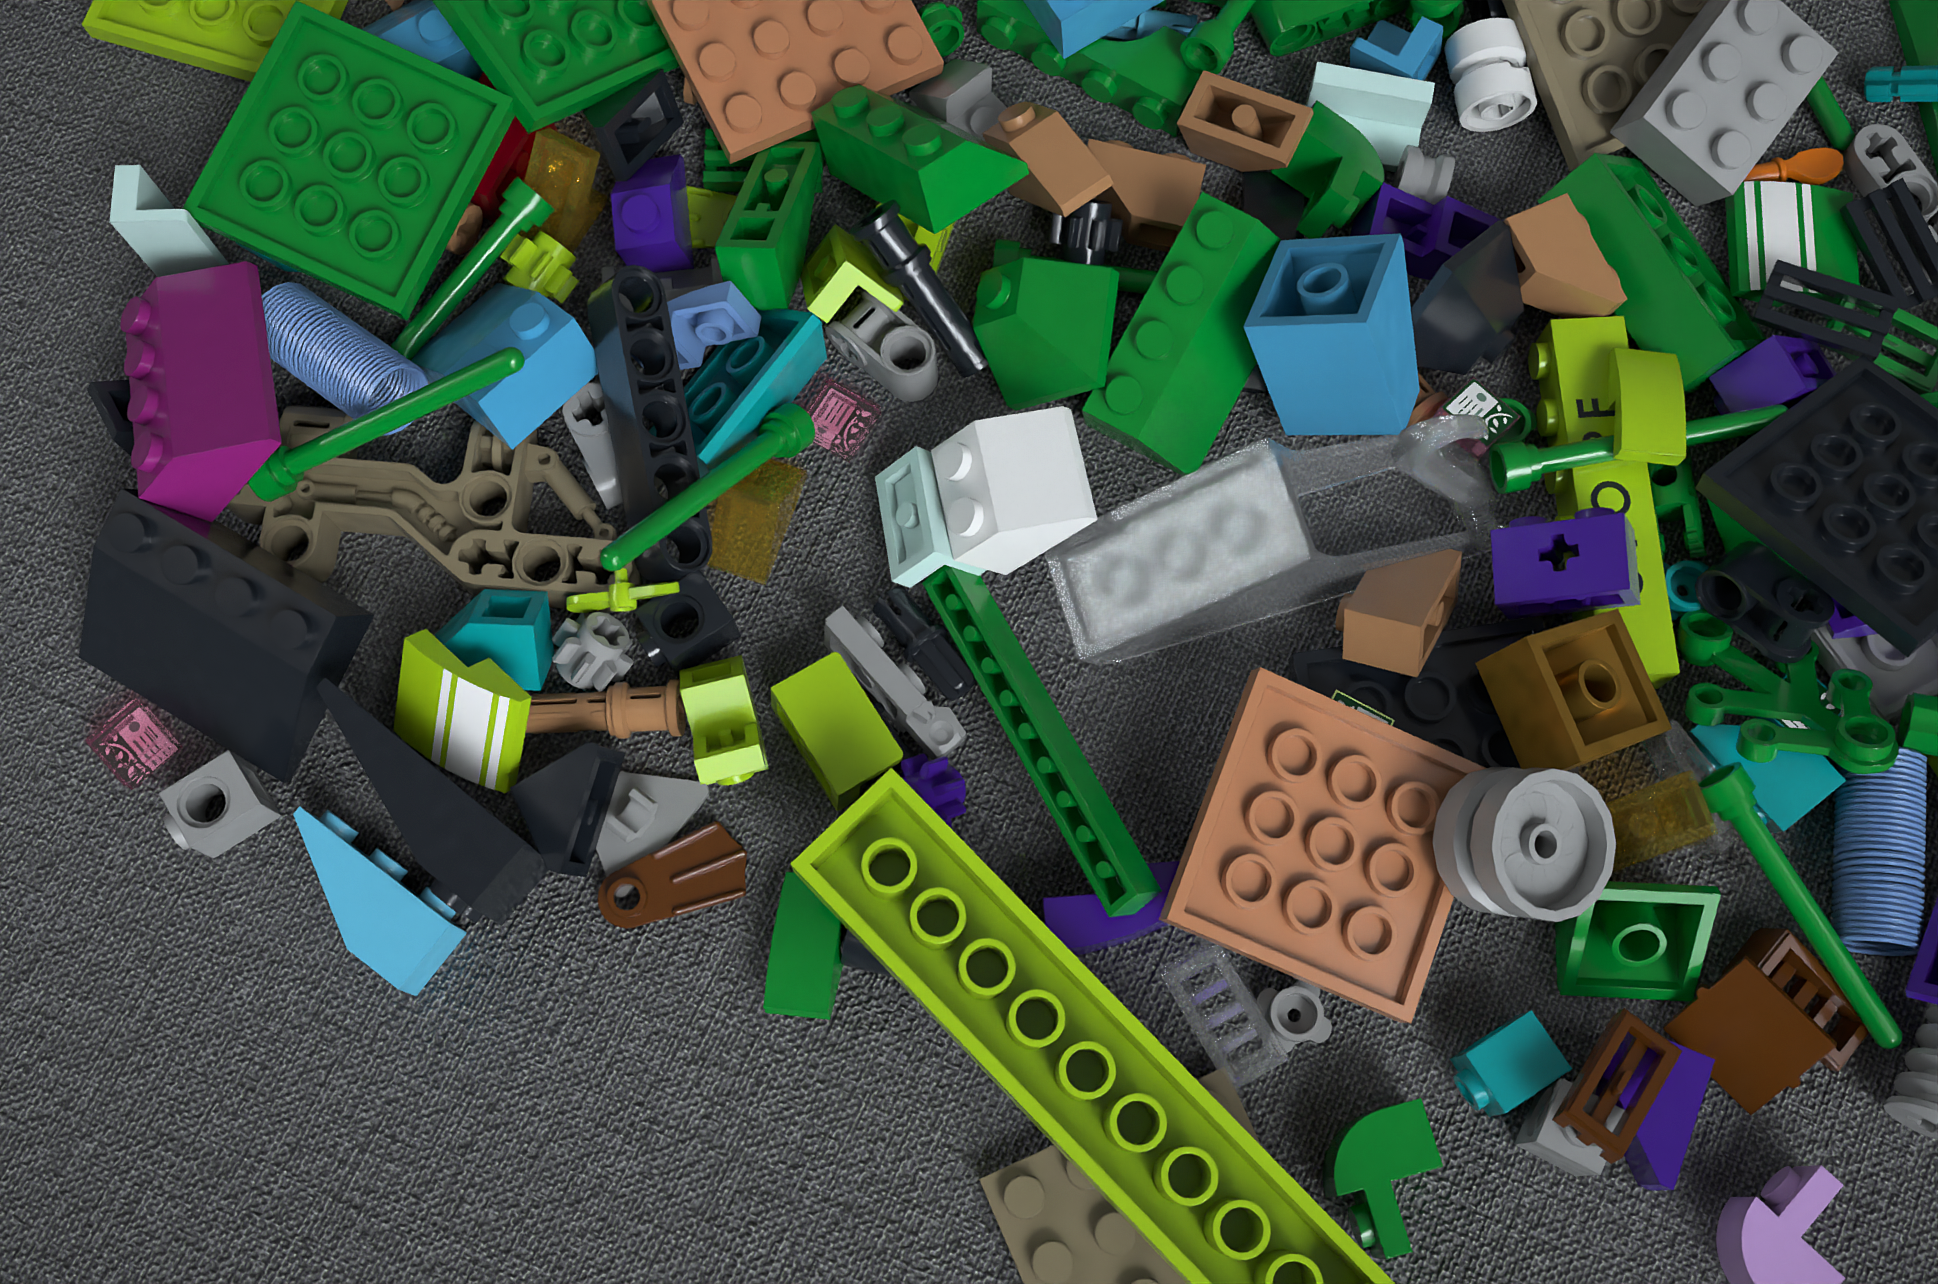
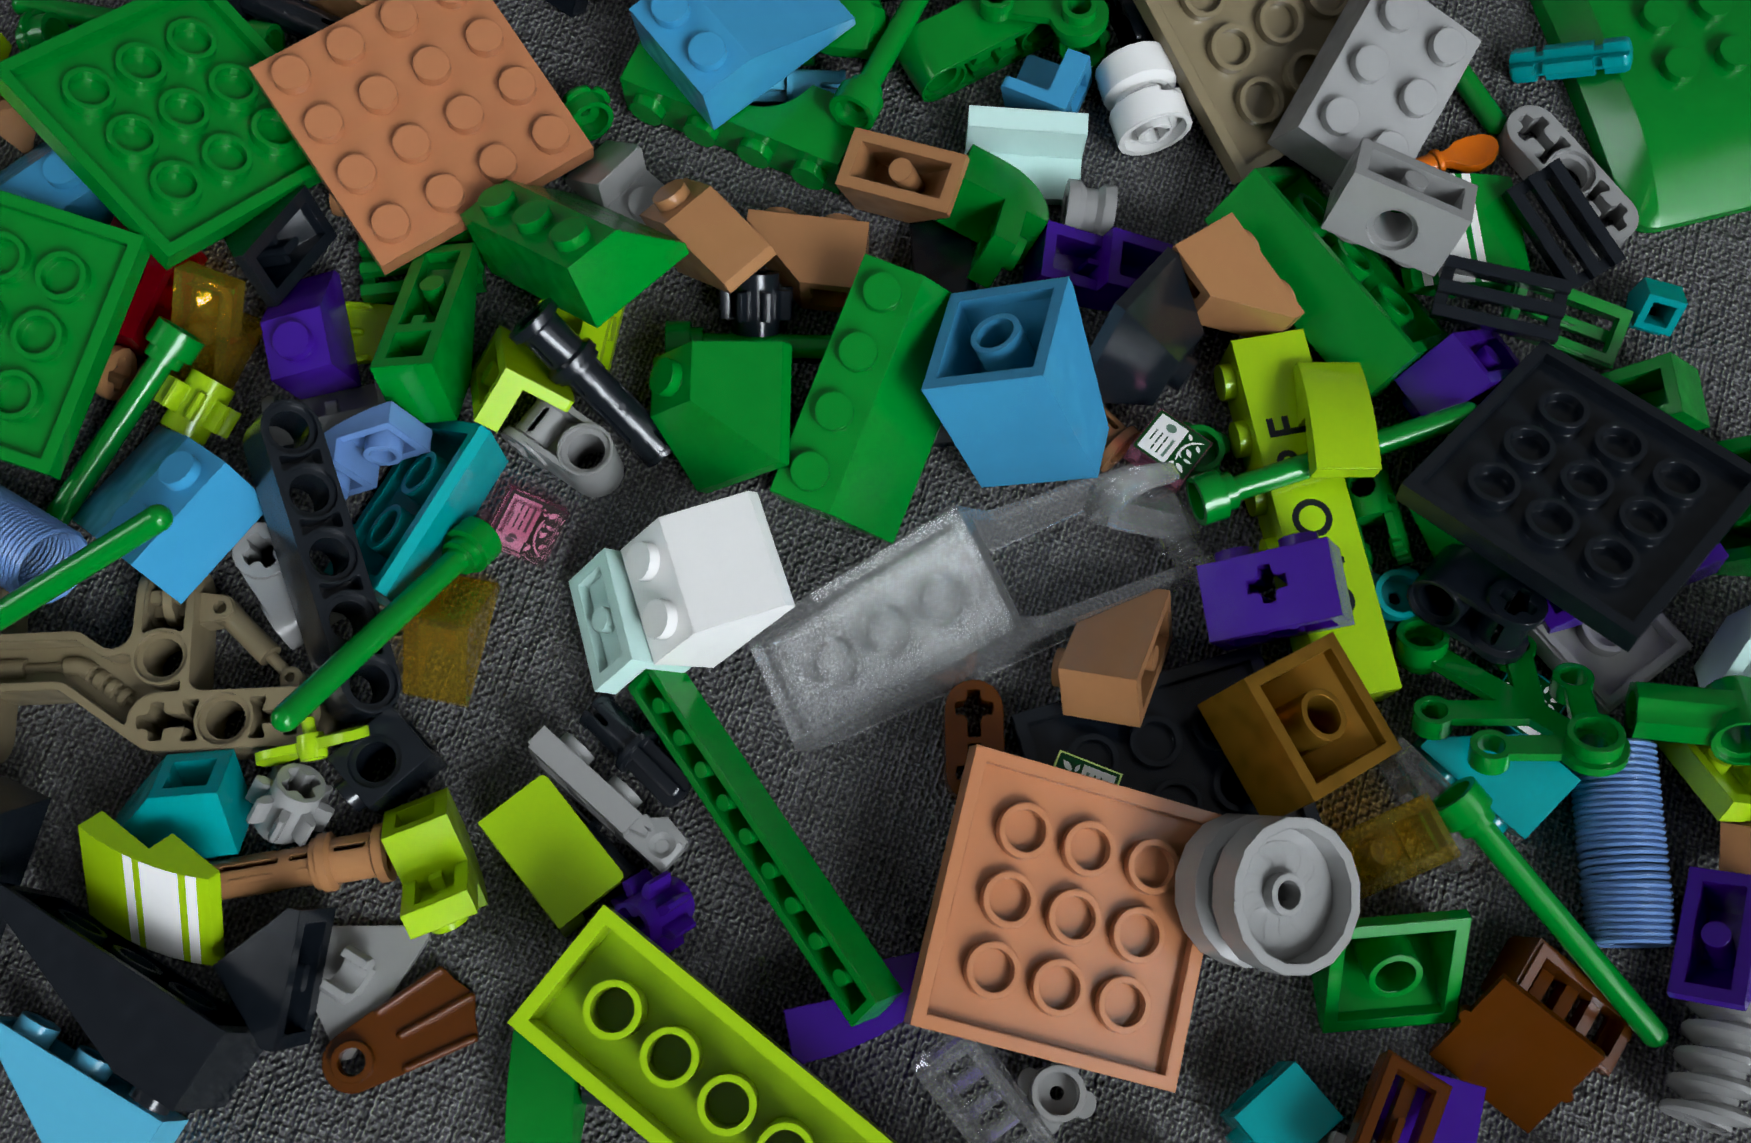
camera: 10 degrees left, 0 degrees up
(1235, 659) = (956, 728): none -> reddish brown beam
(1721, 178) = (1432, 204): none -> light grey brick

